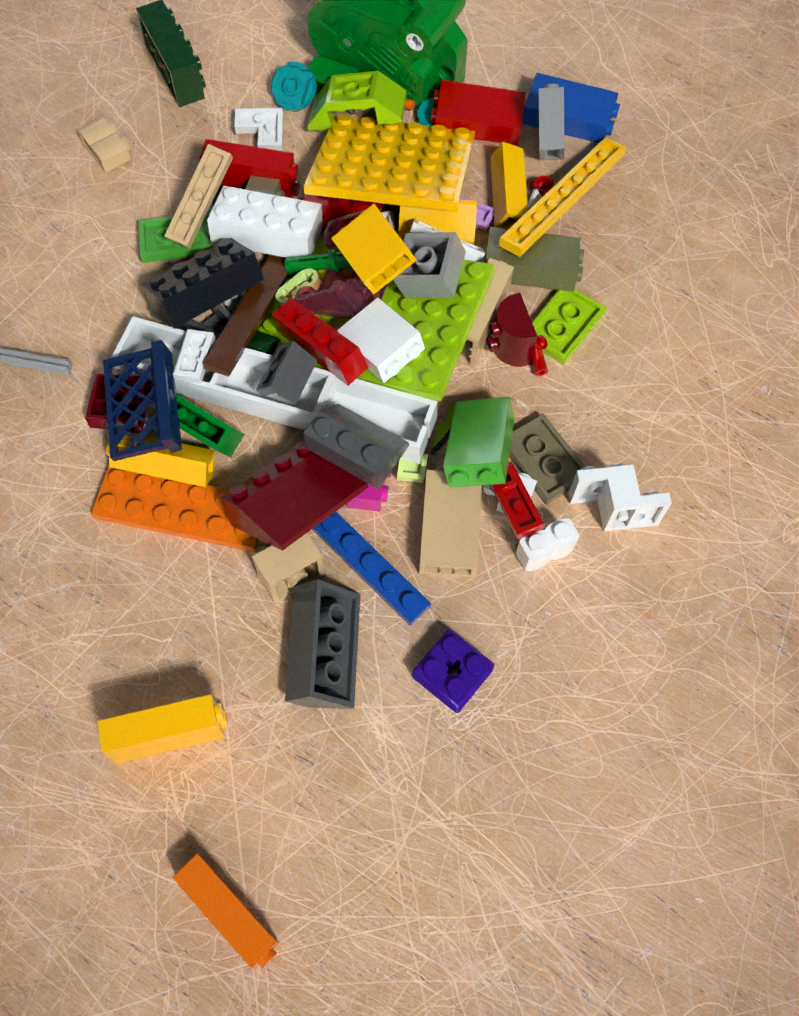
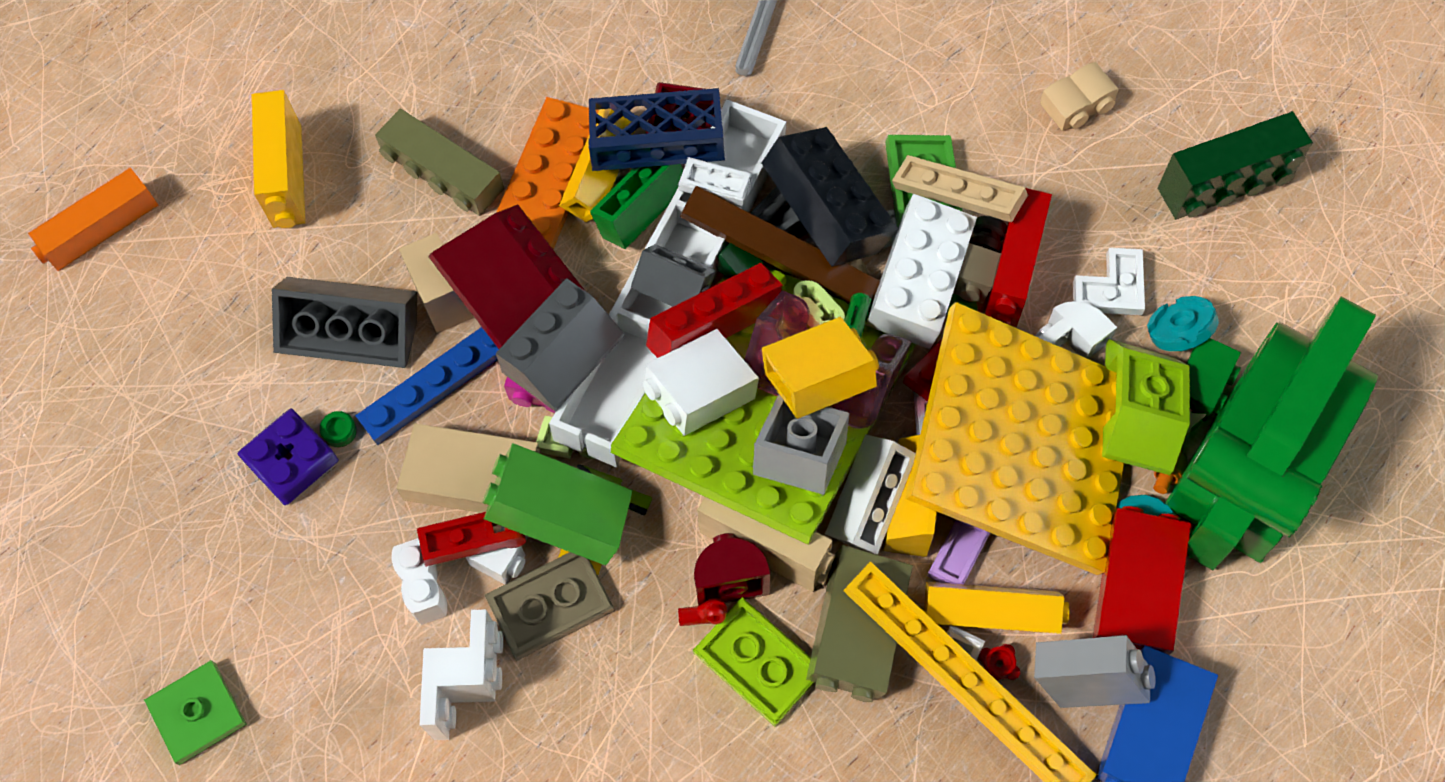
camera: 100 degrees right, 0 degrees up
(160, 593) = (439, 162): none -> olive brick
(303, 142) = (1080, 326): none -> white brick
(421, 637) = (338, 429): none -> green tile
(675, 703) = (195, 712): none -> bright green plate

